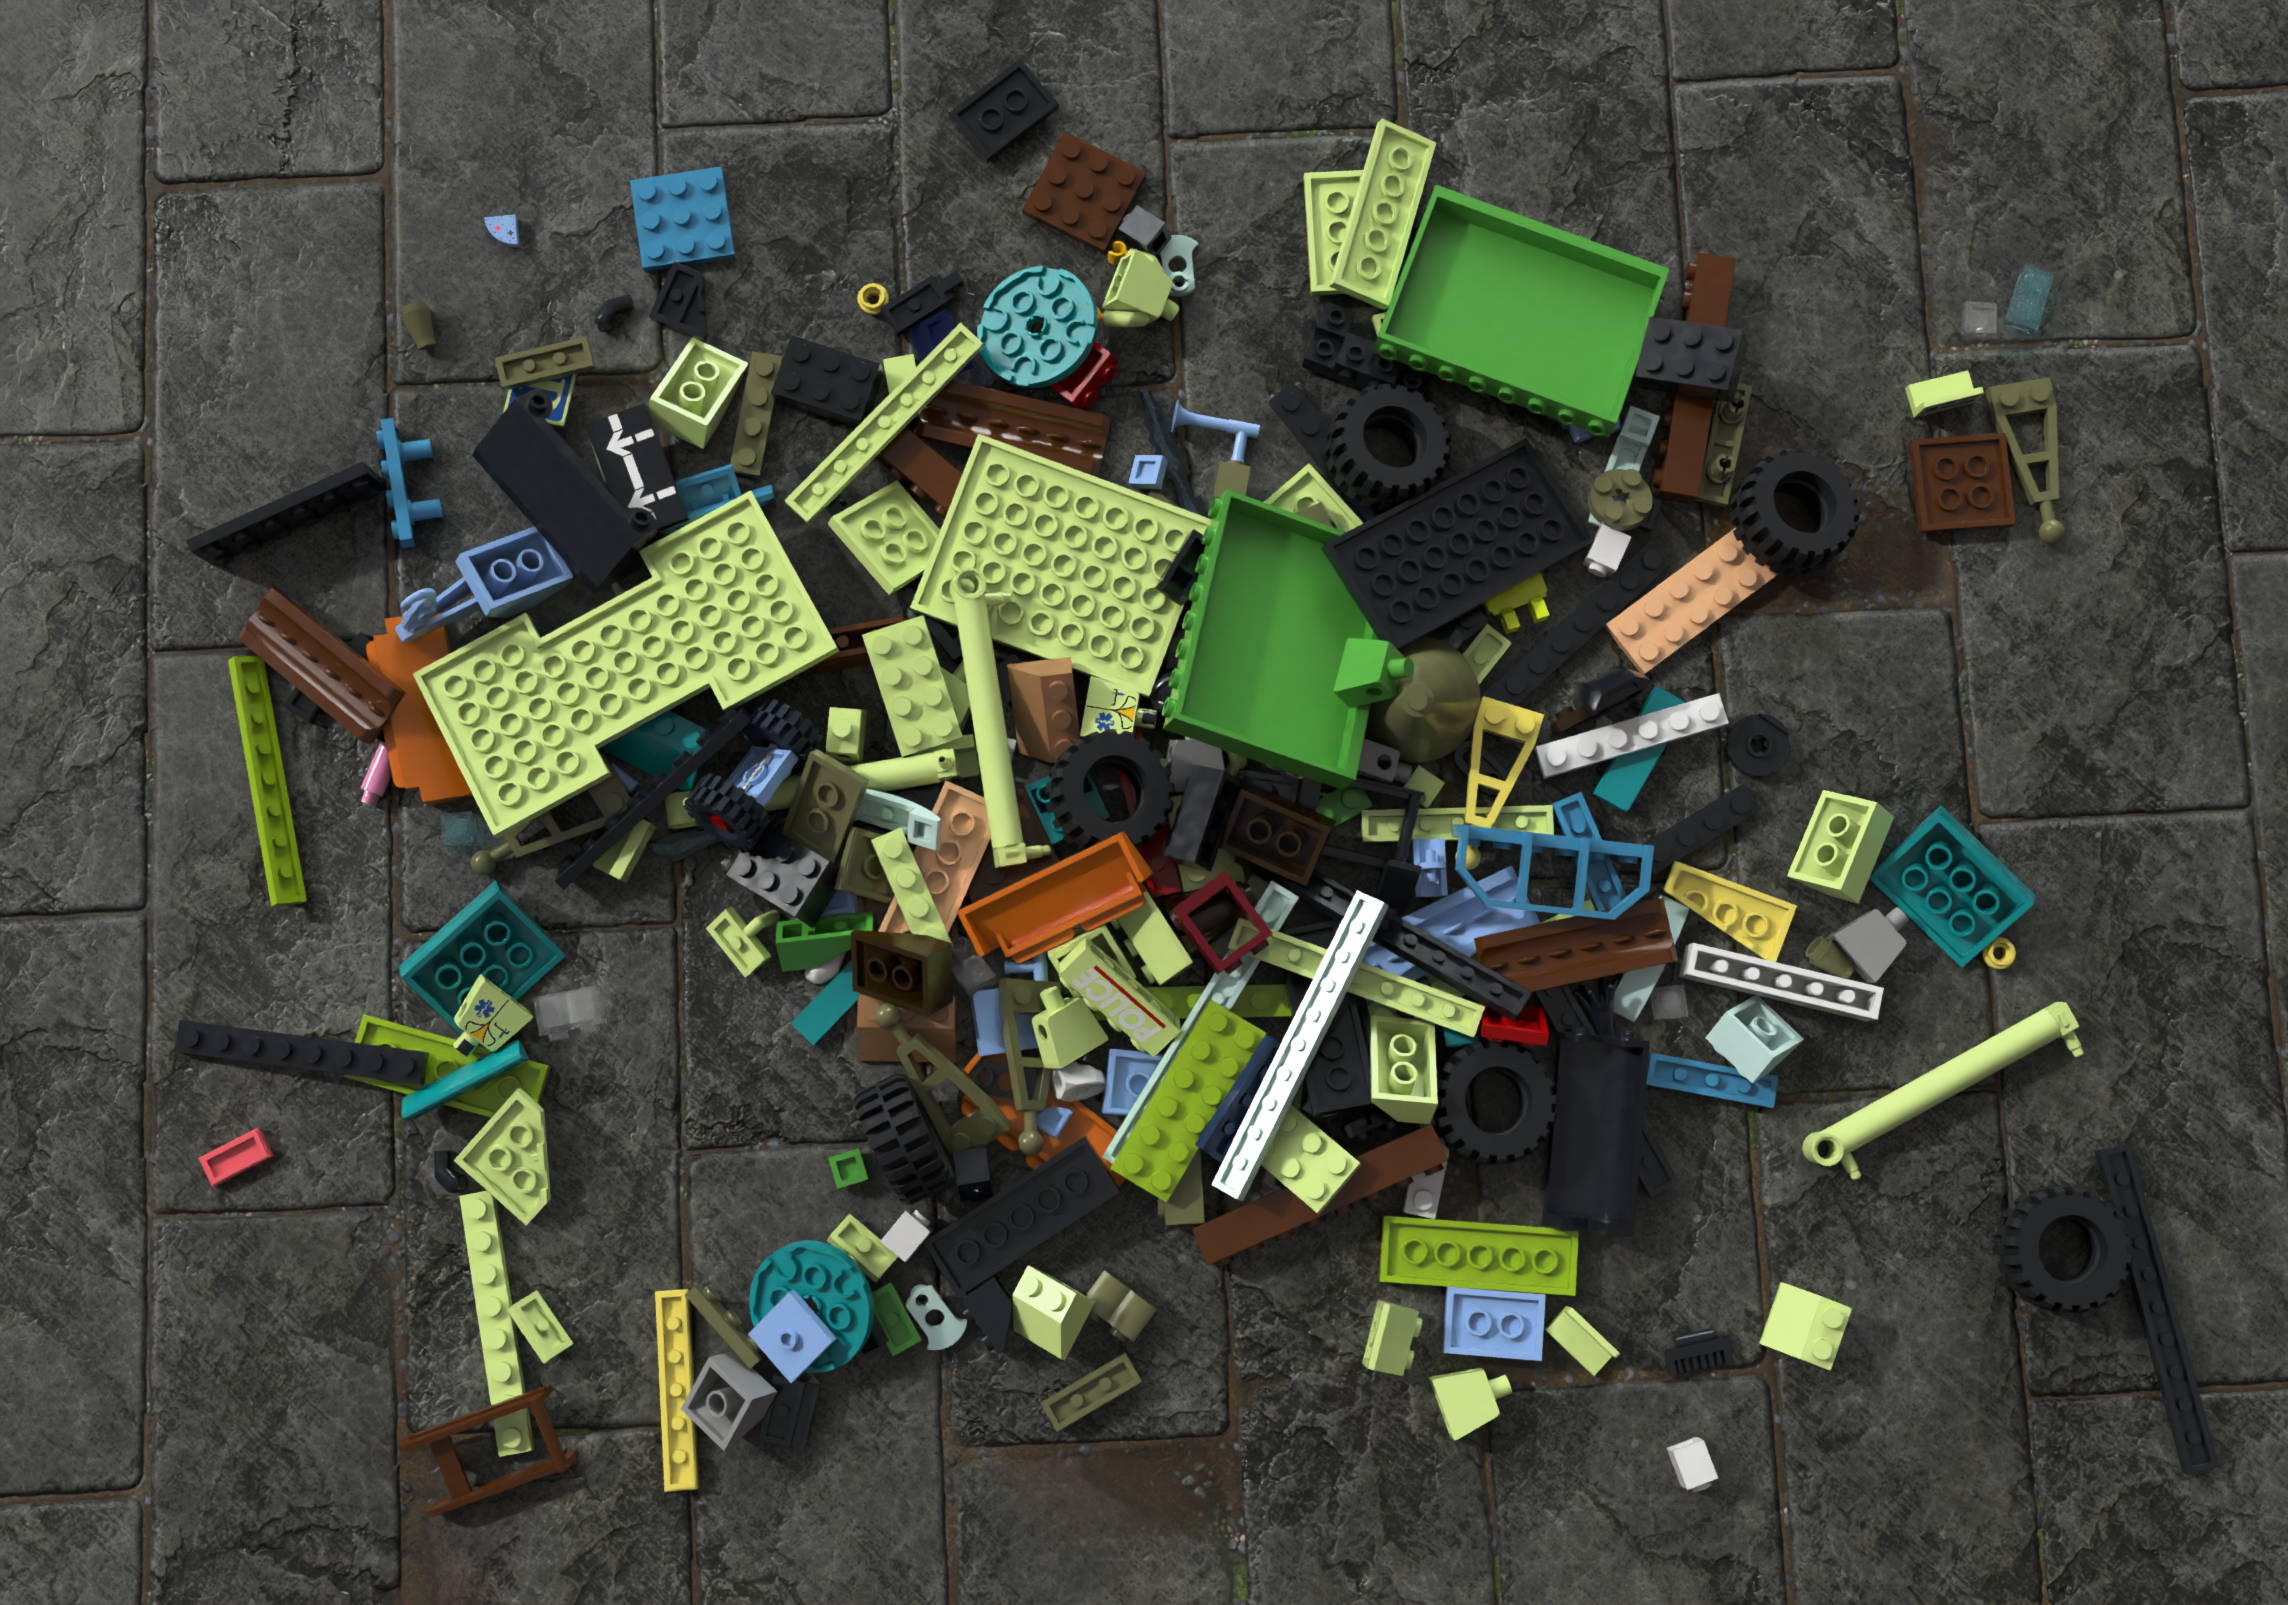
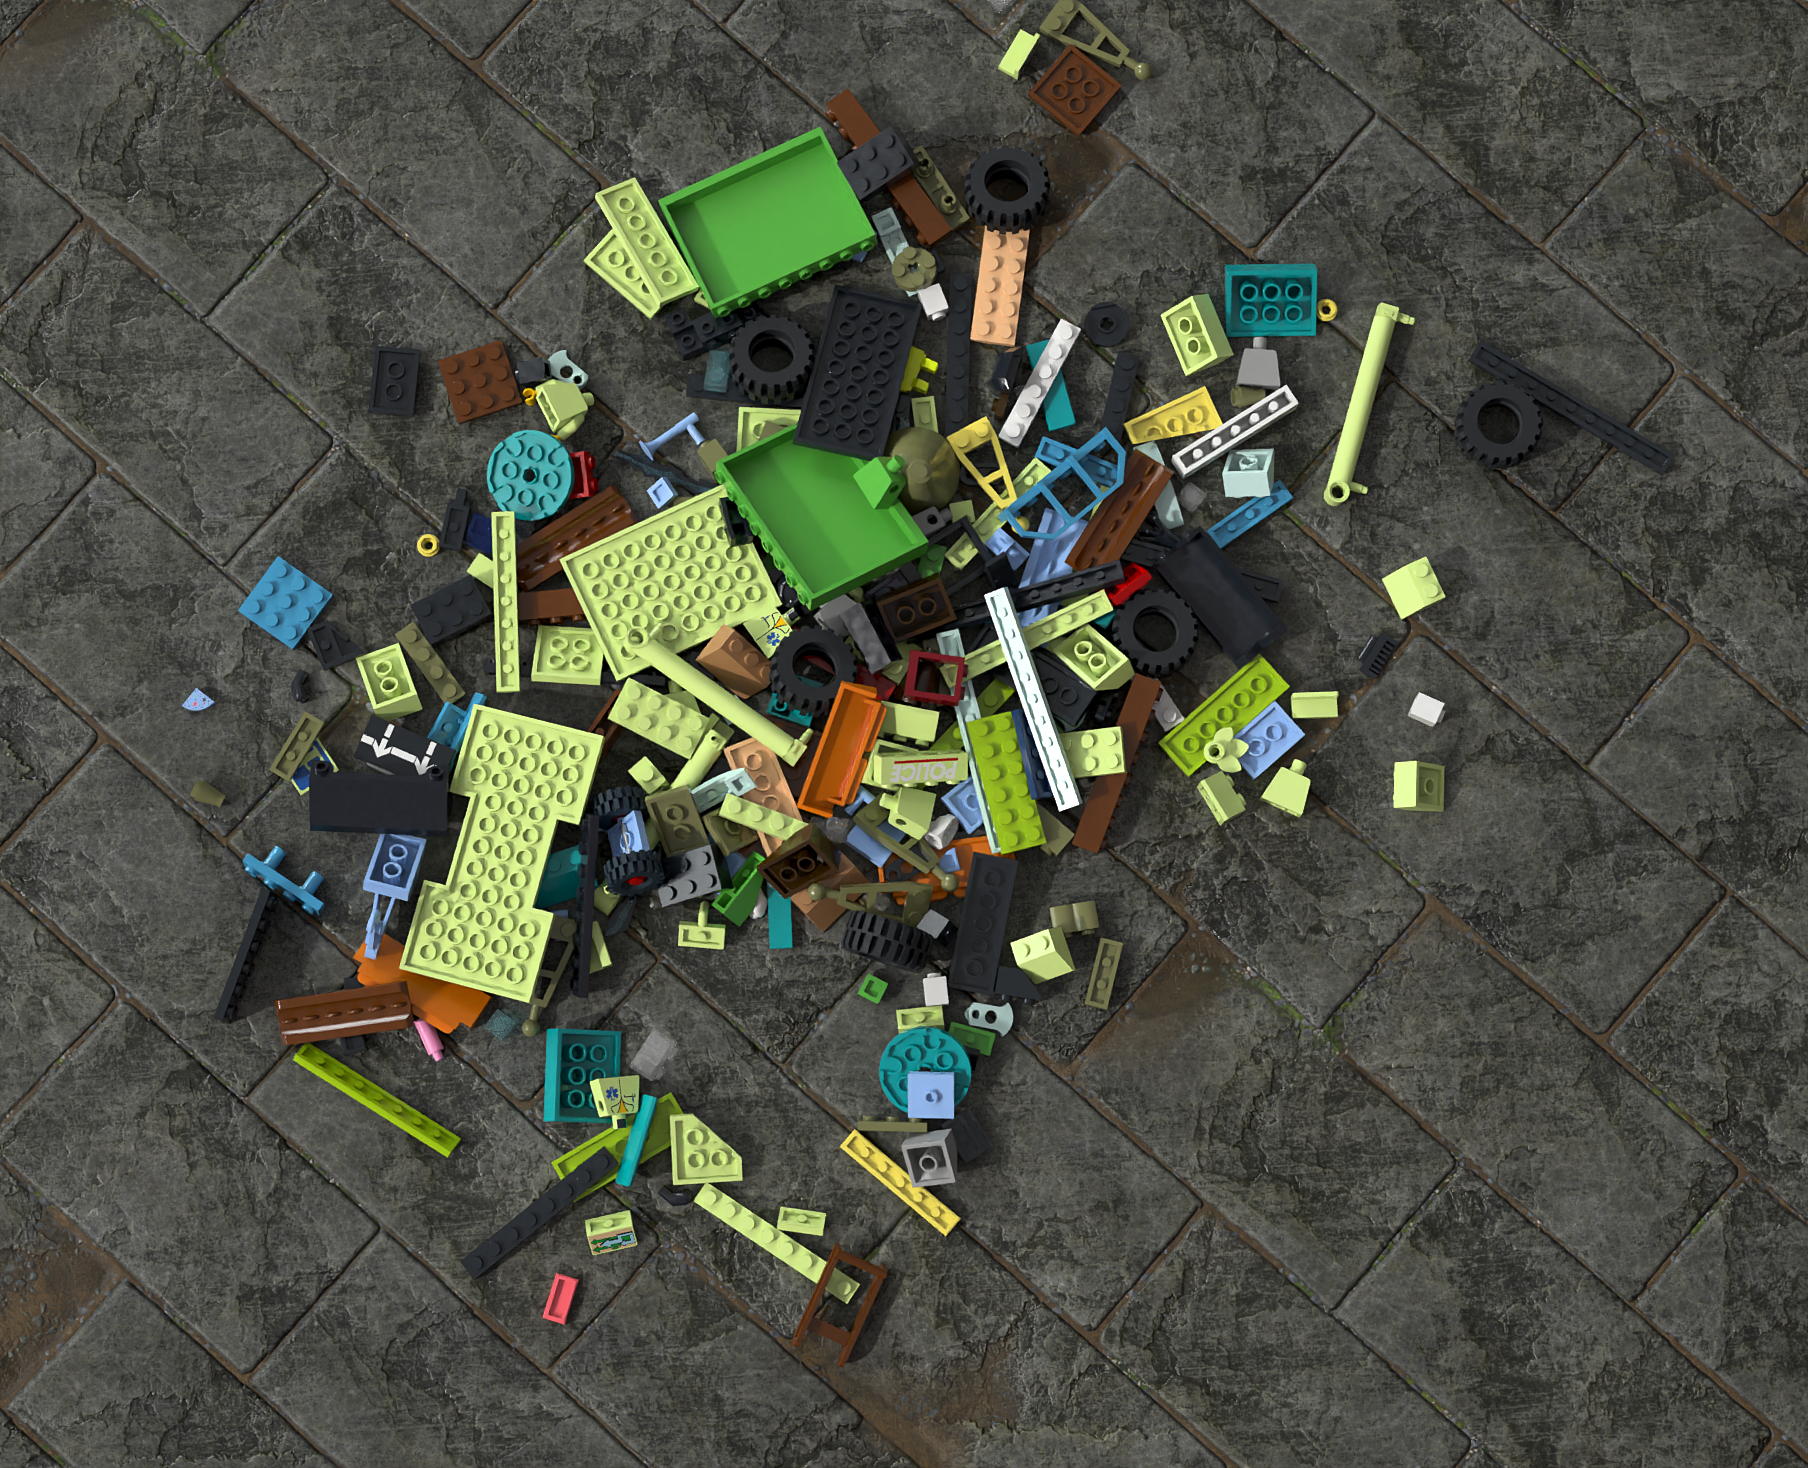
camera: 45 degrees left, 0 degrees up
(349, 1142) = (610, 1232): none -> panel
(1321, 407) = (717, 371): none -> clear light blue plate
(1447, 1297) = (1228, 748): none -> yellowish green plate
(1604, 1534) = (1418, 786): none -> yellowish green slope

